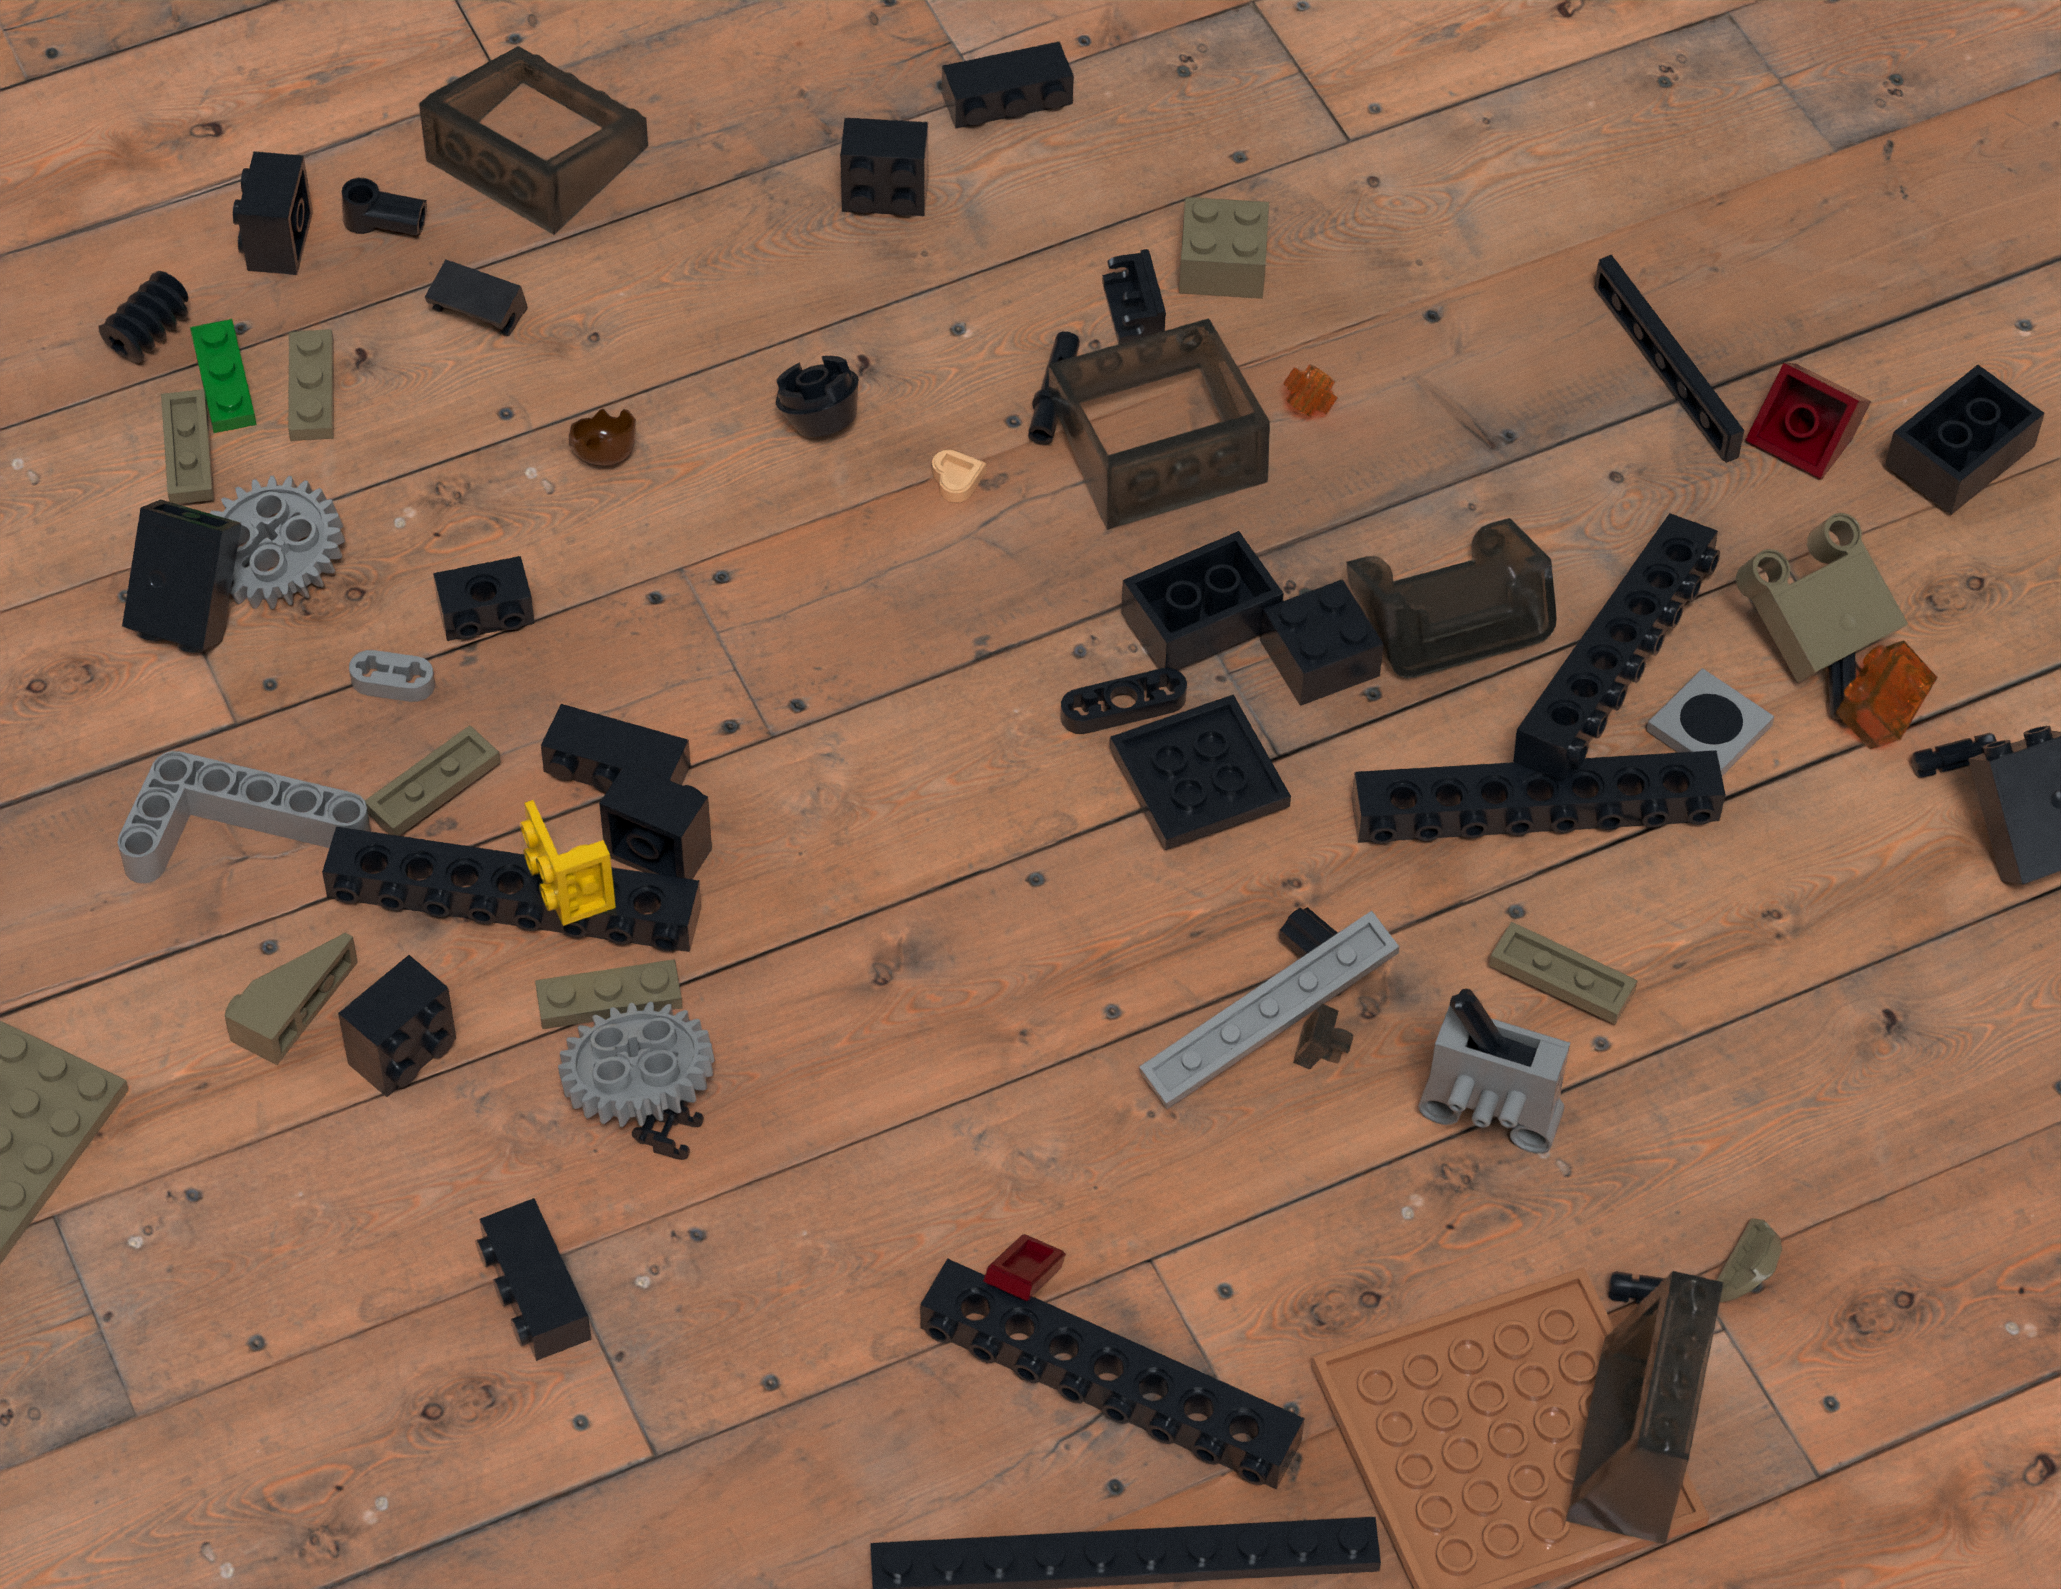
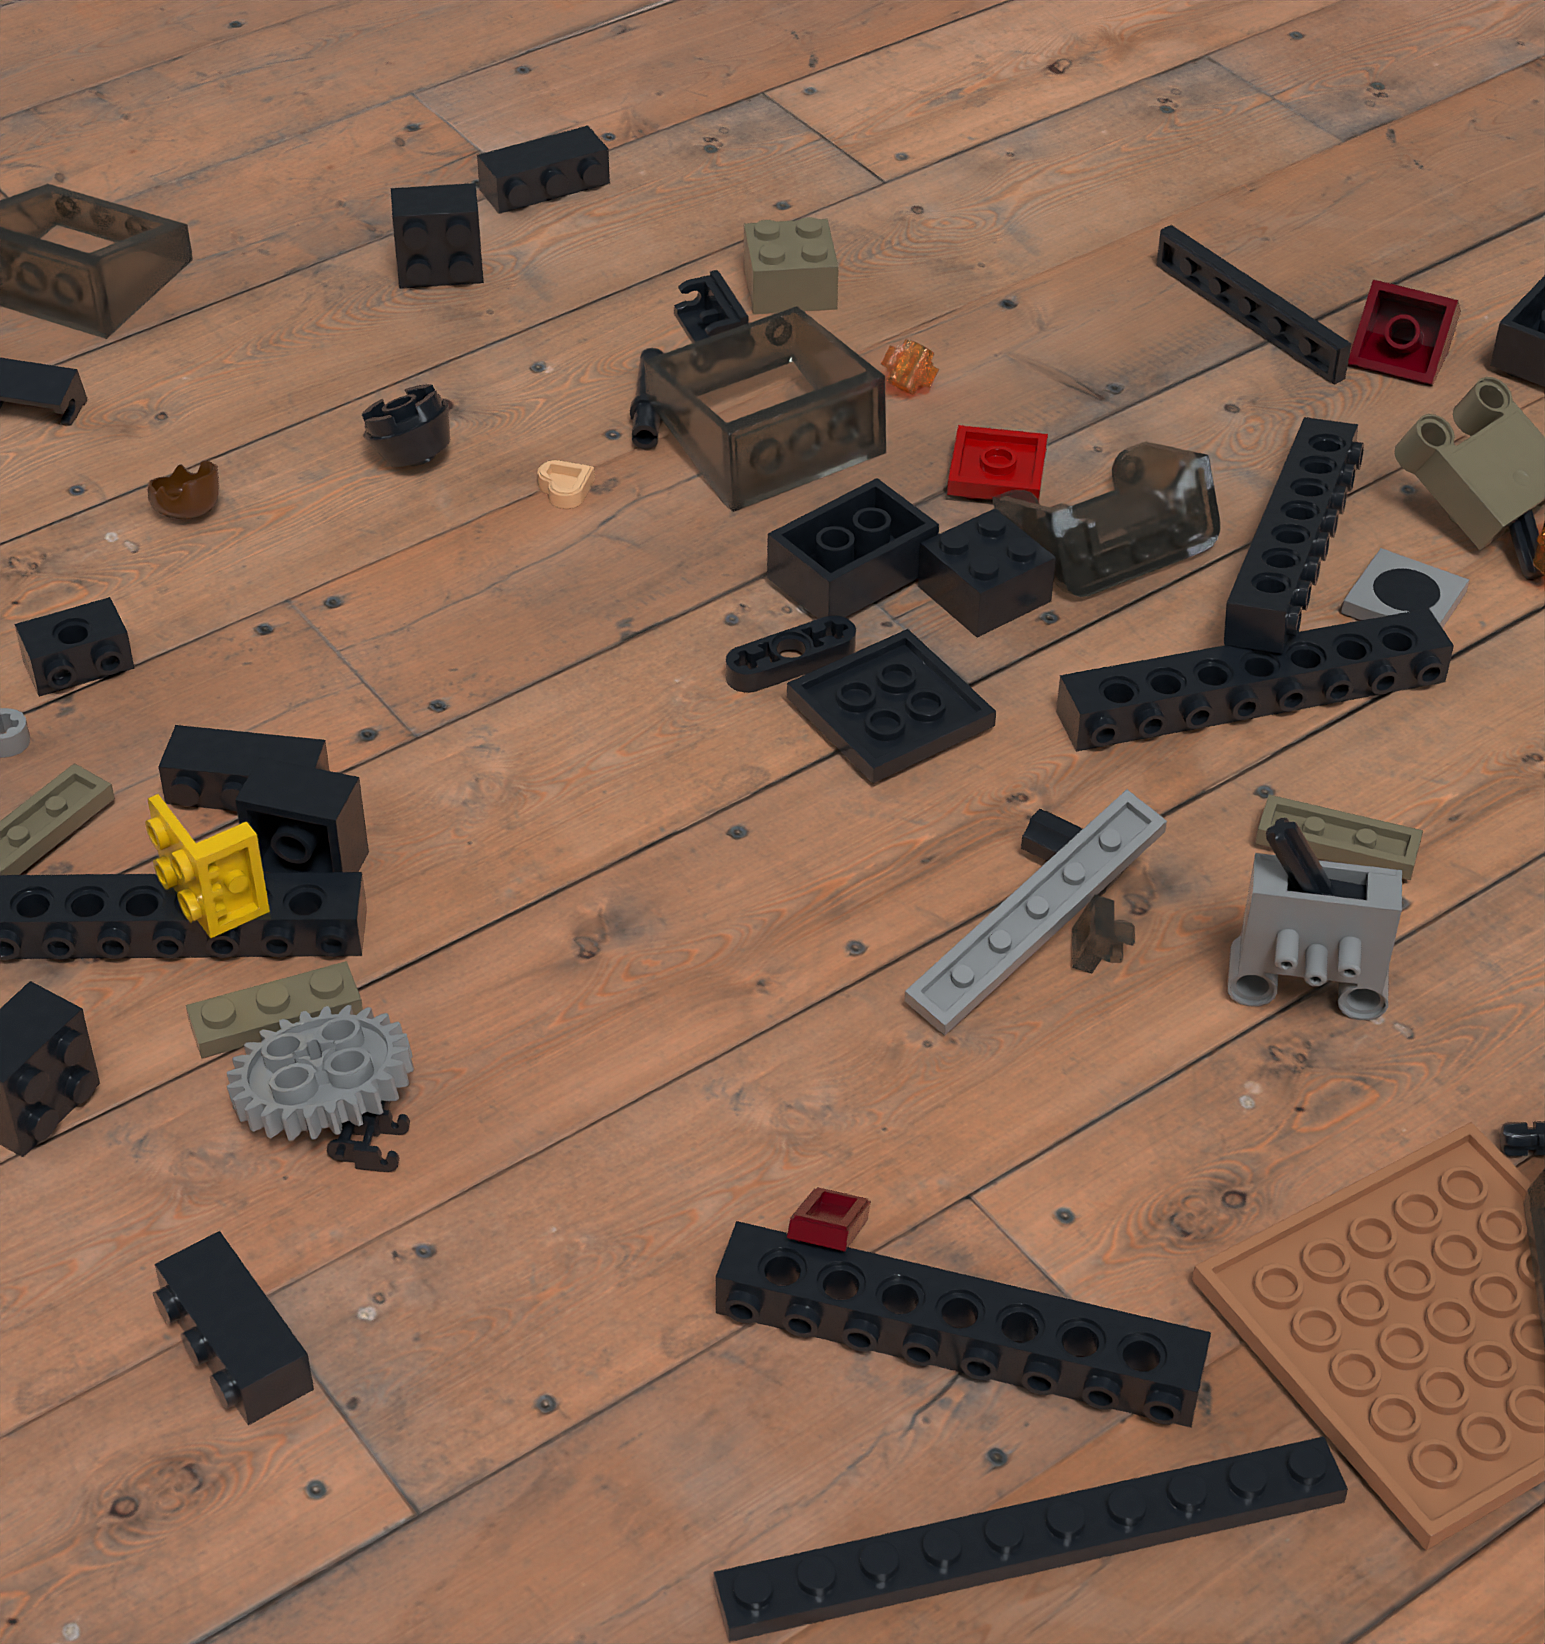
camera: 10 degrees left, 10 degrees down
(1367, 516) = (996, 462): none -> red plate

